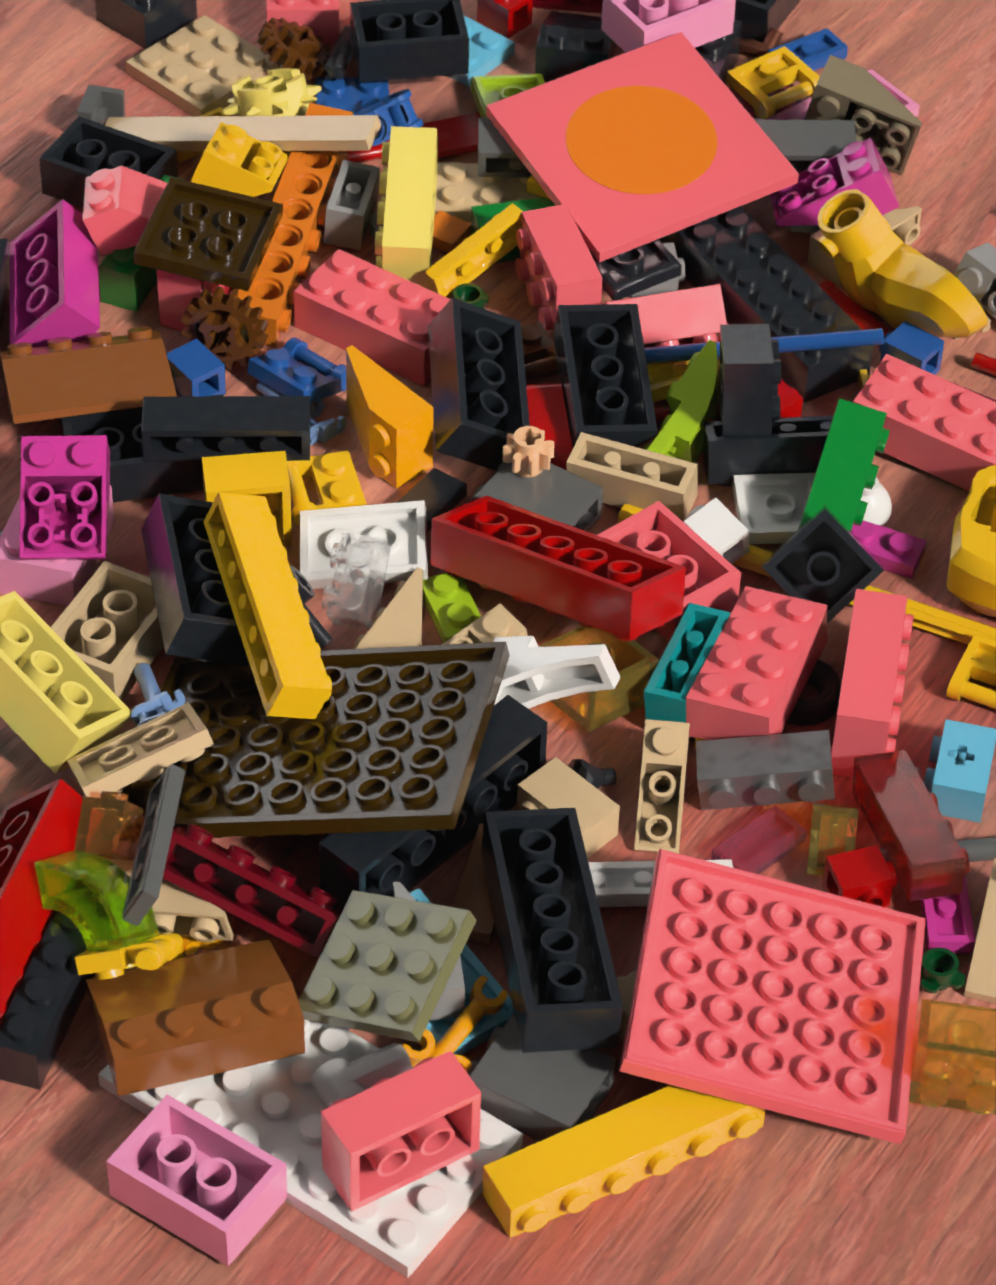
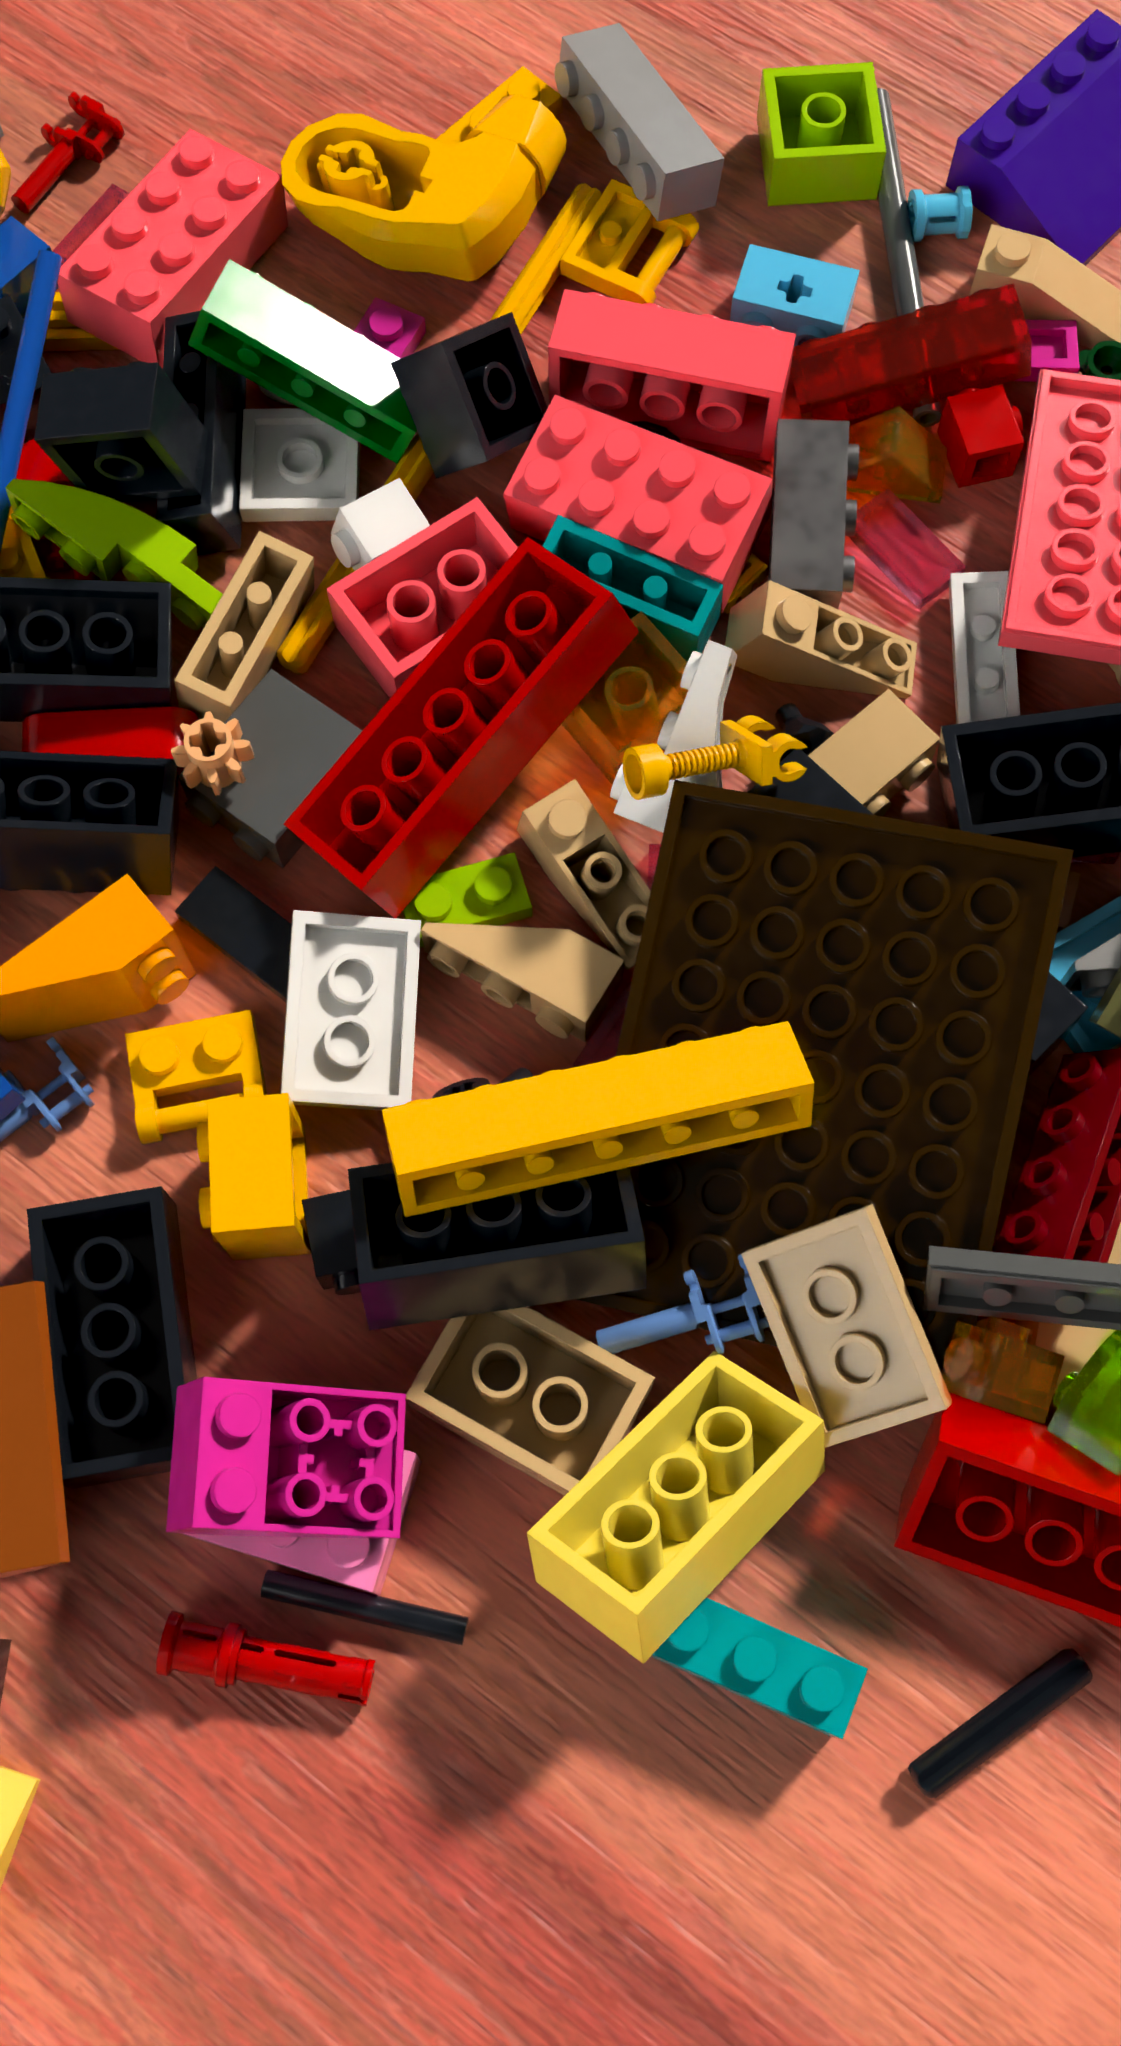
camera: 85 degrees left, 25 degrees up
(224, 425) = (137, 1196): black brick -> none
(357, 580) = (449, 1013): clear brick -> none
(541, 687) = (650, 770): none -> yellow bar

